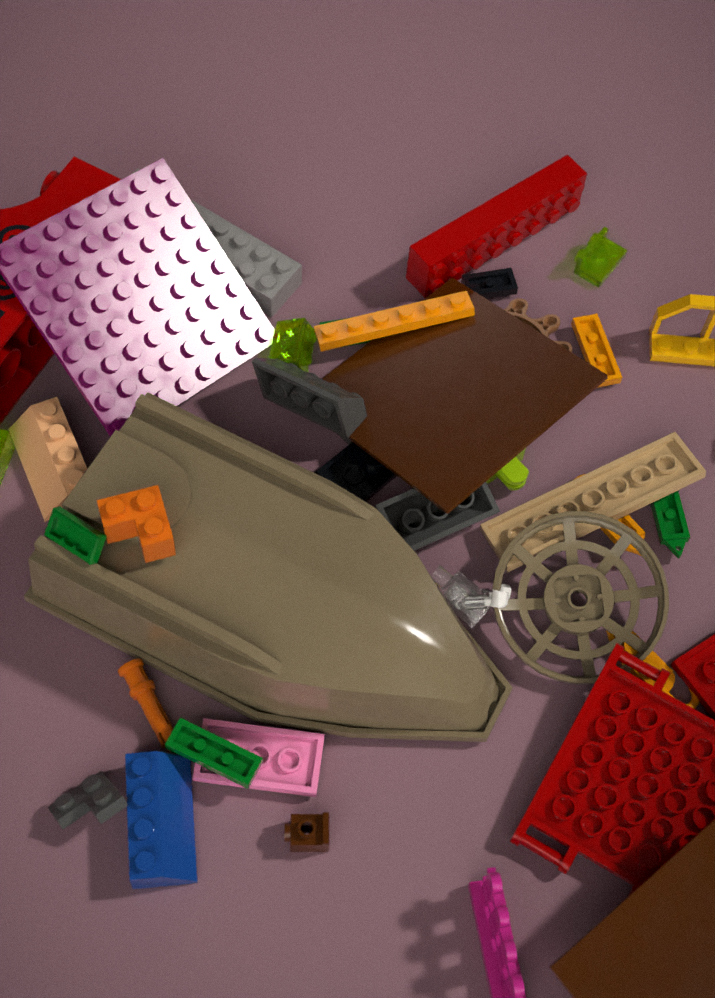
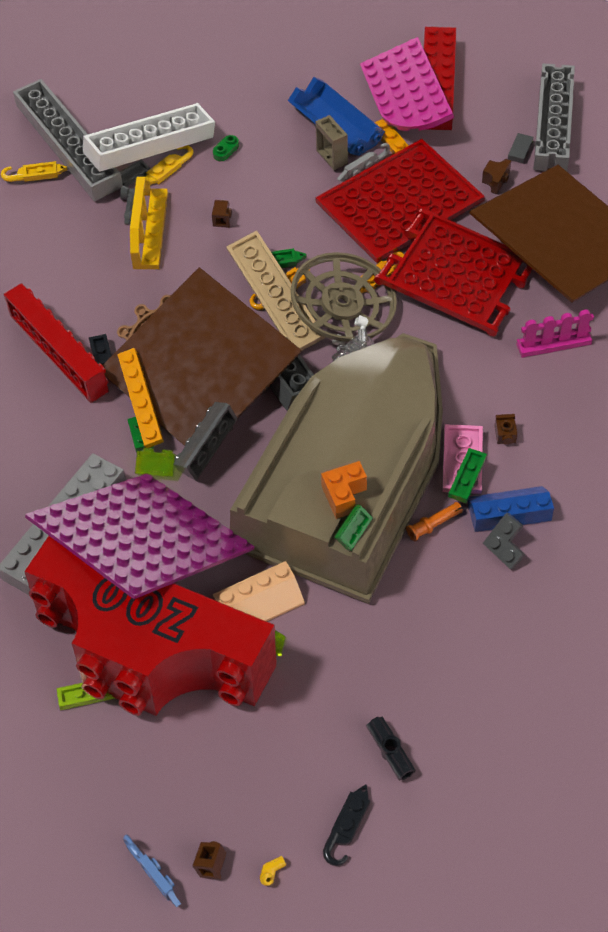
camera: 85 degrees left, 5 degrees down
(357, 472) = (257, 423): black tile -> none
(596, 347) = (152, 293): light orange plate -> none
(598, 258) = (78, 292): clear neon green bracket -> none

